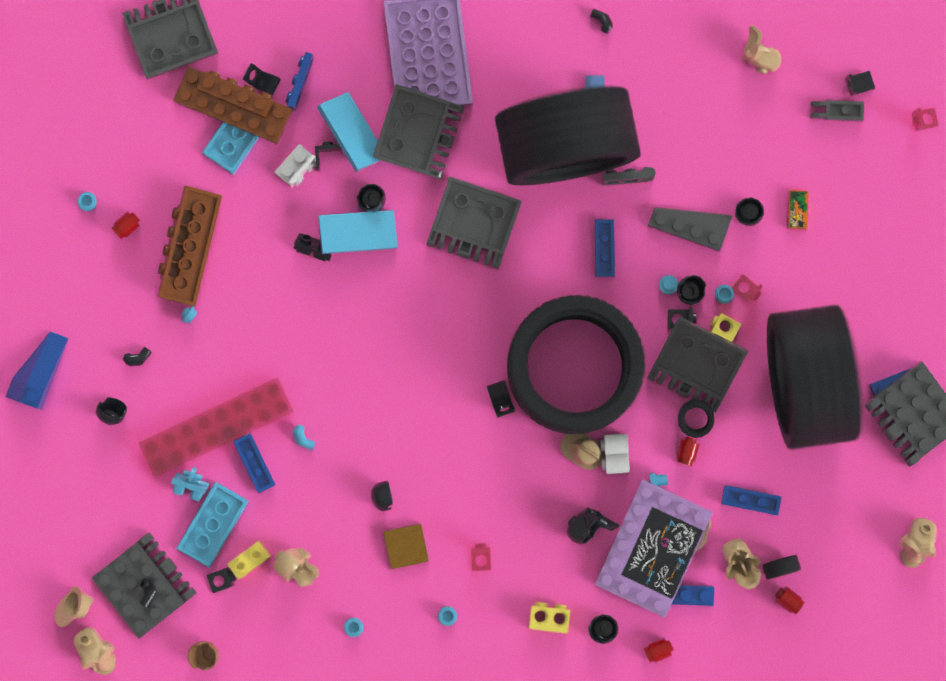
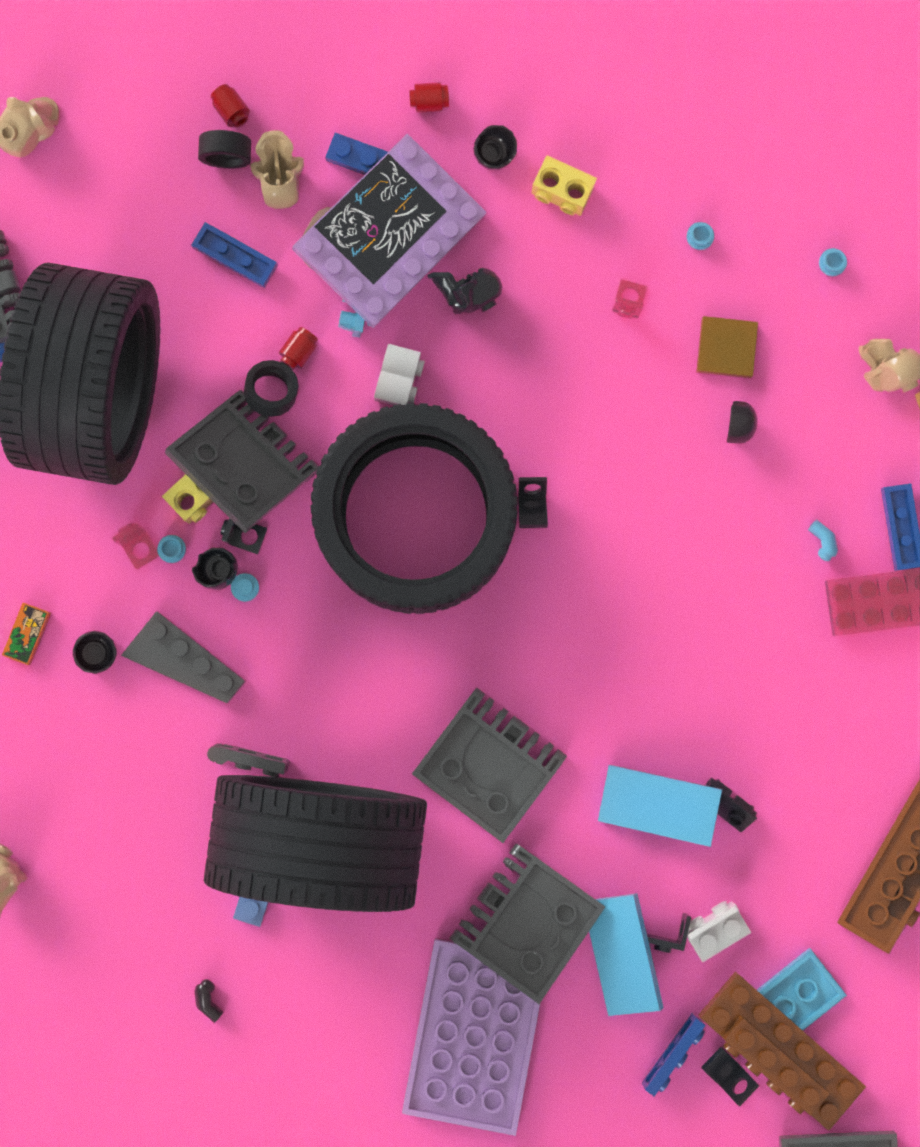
camera: 165 degrees left, 0 degrees up
(371, 198) = (624, 848): black hair -> none
(582, 450) = (442, 389): tan piece -> none
(604, 248) = (317, 668): blue plate -> none

